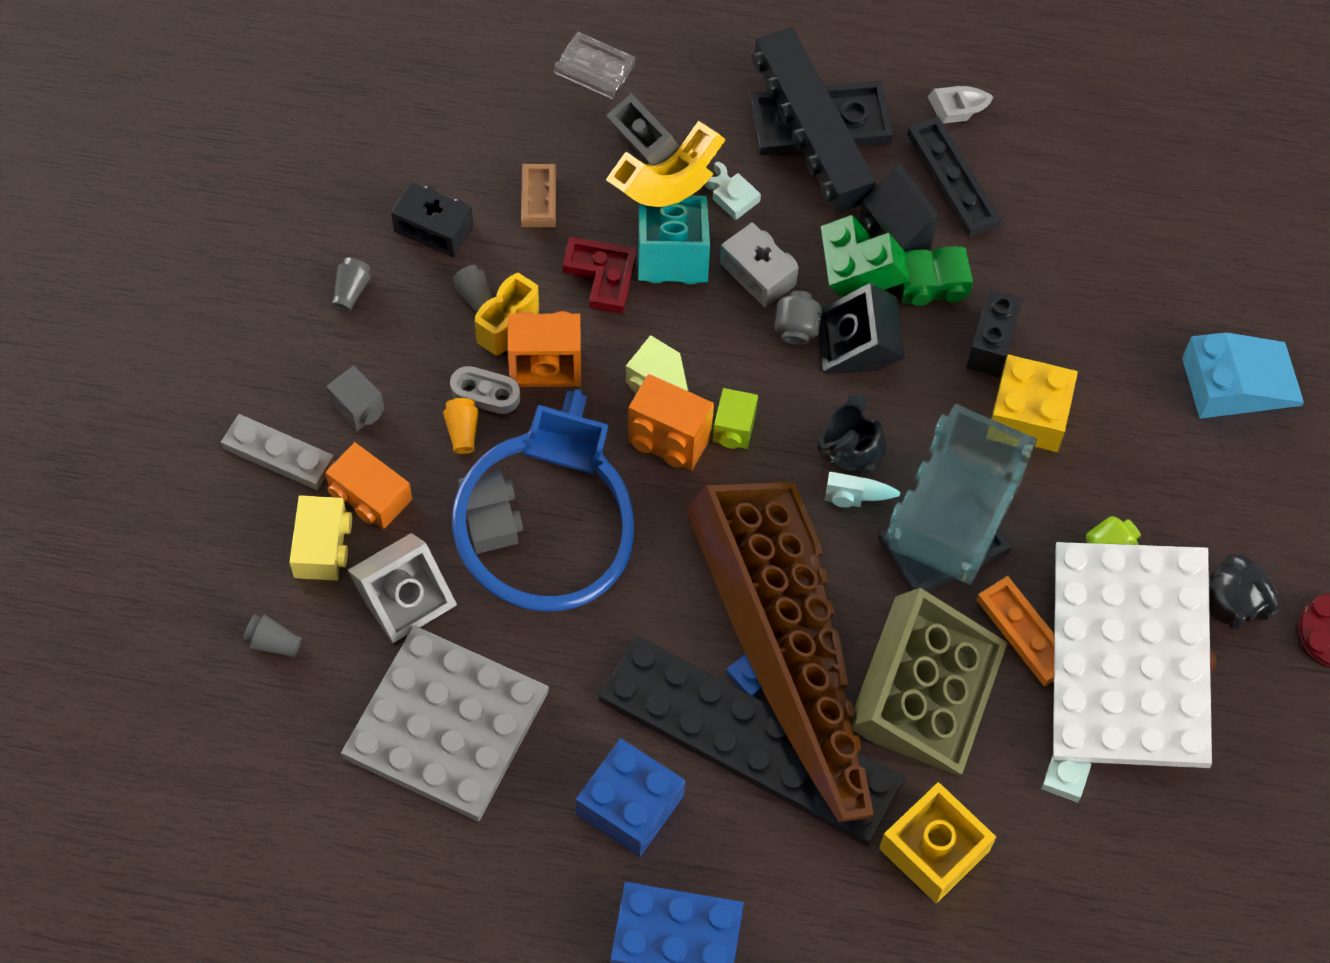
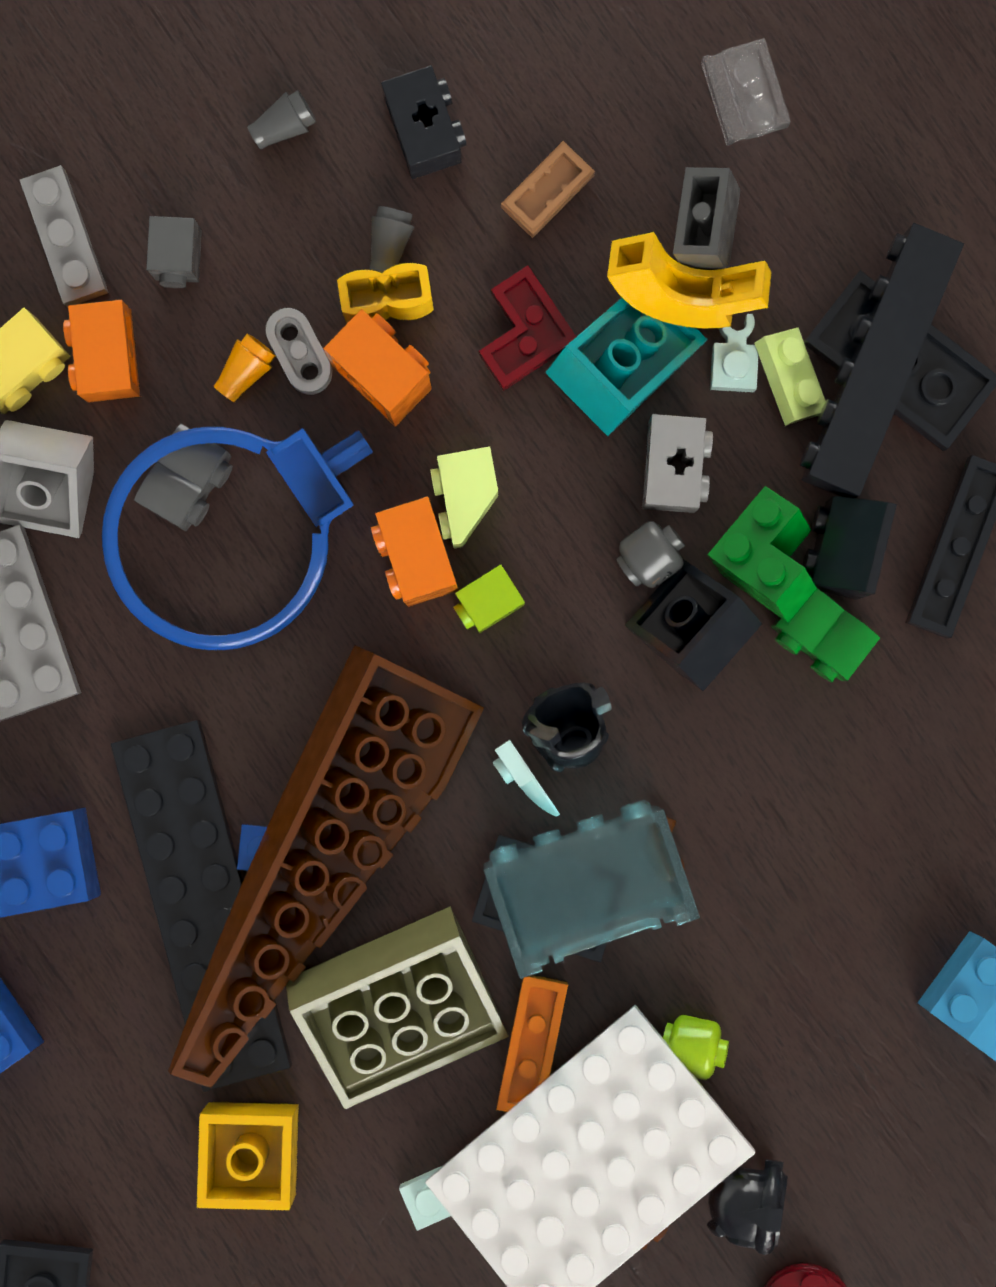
camera: 50 degrees right, 25 degrees up
(771, 172) = (791, 375): none -> yellowish green plate
(994, 333) = (815, 746): black brick -> none
(1035, 400) = (772, 849): yellow brick -> none

